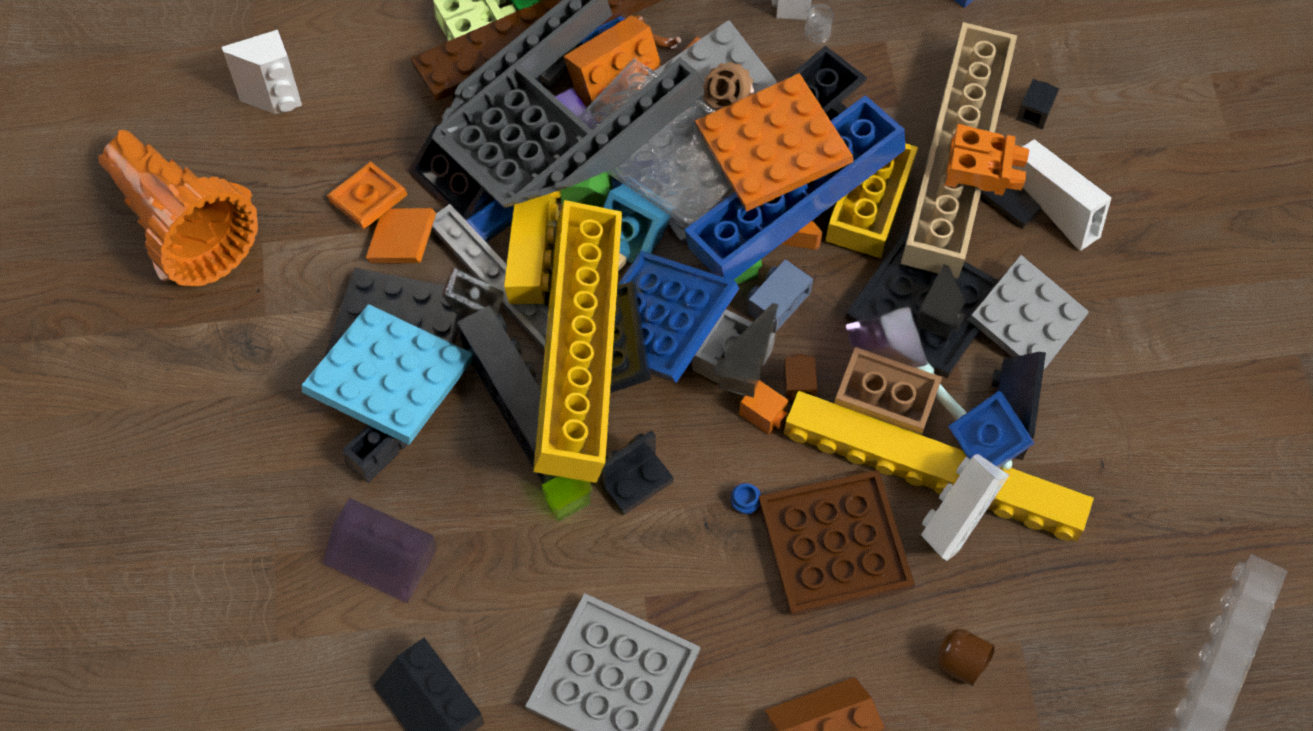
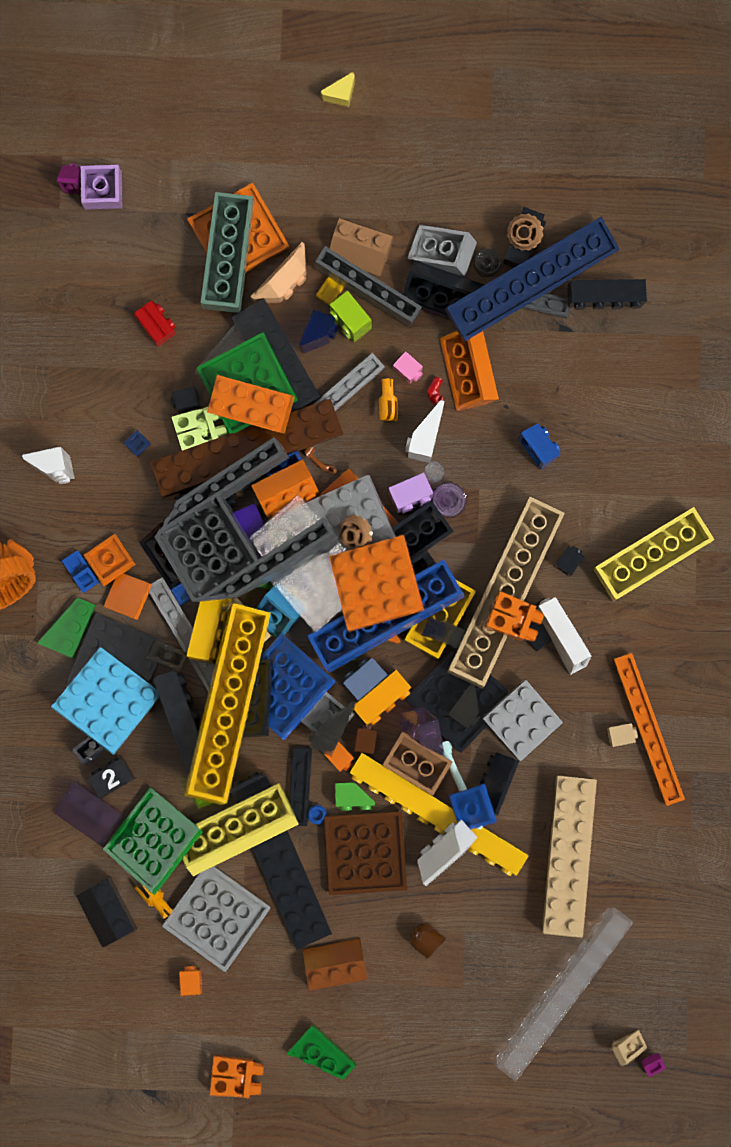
camera: 15 degrees right, 20 degrees up
(317, 297) = (69, 628): none -> green wing
(324, 218) = (80, 571): none -> blue slope
(388, 46) = (137, 443): none -> dark blue plate
(410, 491) = (111, 777): none -> black brick
(491, 567) = (152, 840): none -> green plate
(504, 661) = (156, 901): none -> light orange arm
(622, 531) = (240, 829): none -> light yellow brick
(710, 464) = (300, 783): none -> black tile
(727, 617) = (292, 890): none -> black plate
(792, 42) = (410, 494): none -> lavender brick
(797, 459) = (352, 795): none -> bright green slope
(812, 316) = (382, 698): none -> light orange brick
(852, 47) = (449, 499): none -> clear purple piece
(887, 200) = (443, 632): none -> clear smoke slope
(1153, 76) = (653, 554): none -> light yellow brick
(1155, 497) = (569, 856): none -> tan brick
(1181, 314) = (622, 735): none -> tan brick
(1220, 304) = (649, 729): none -> orange plate

